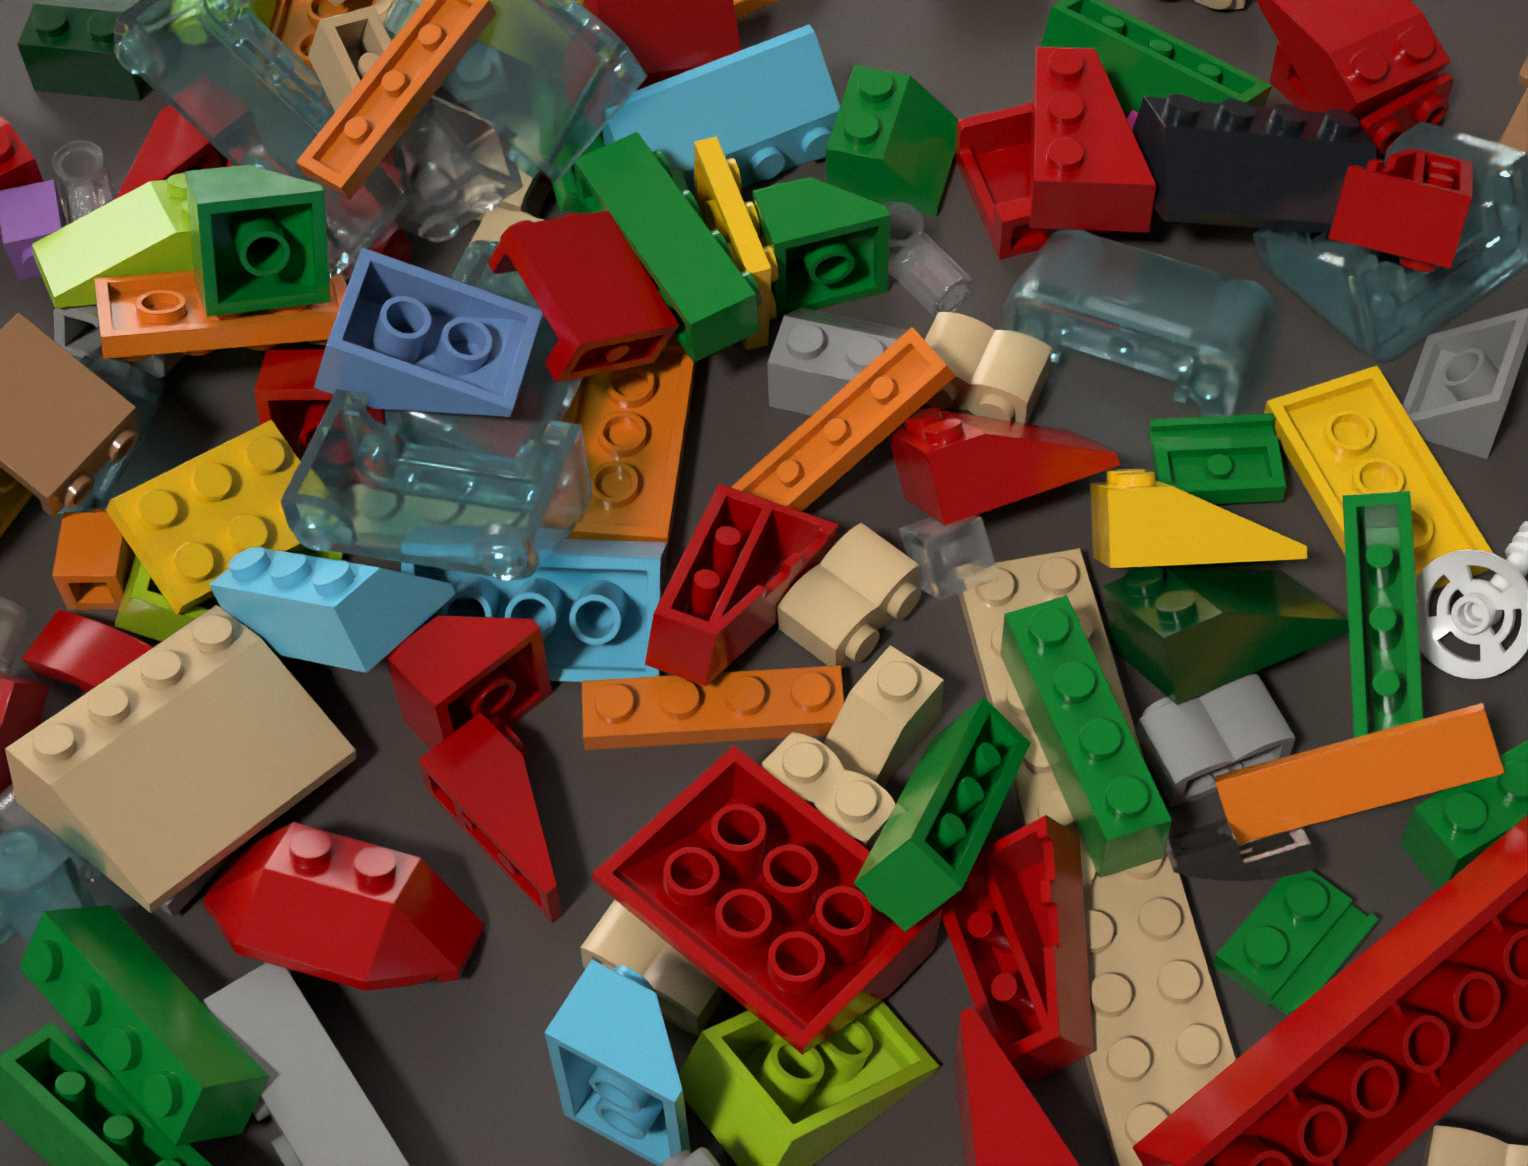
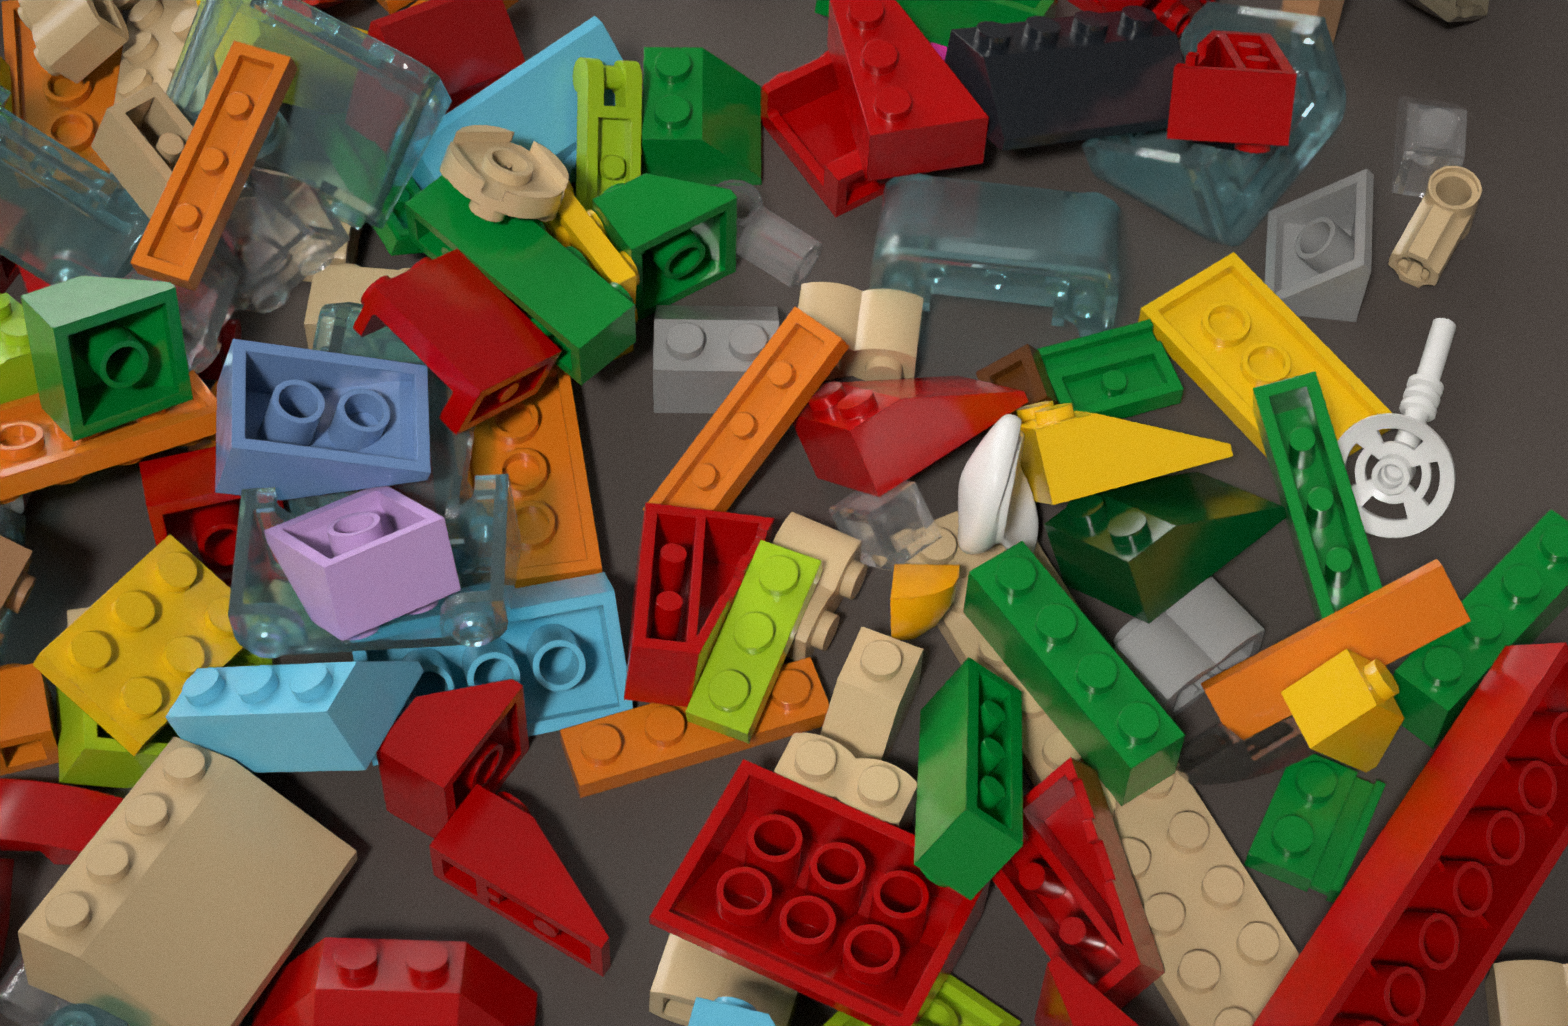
camera: 20 degrees left, 0 degrees up
(428, 479) = (366, 561): none -> lavender slope
(670, 151) = (504, 175): none -> tan plate
(784, 637) = (754, 641): none -> lime plate
(795, 138) = (607, 134): none -> lime plate
(955, 630) = (920, 597): none -> light orange brick
(1060, 547) = (995, 494): none -> white piece
(1128, 437) = (1022, 371): none -> reddish brown plate
(1350, 834) = (1347, 709): none -> yellow slope

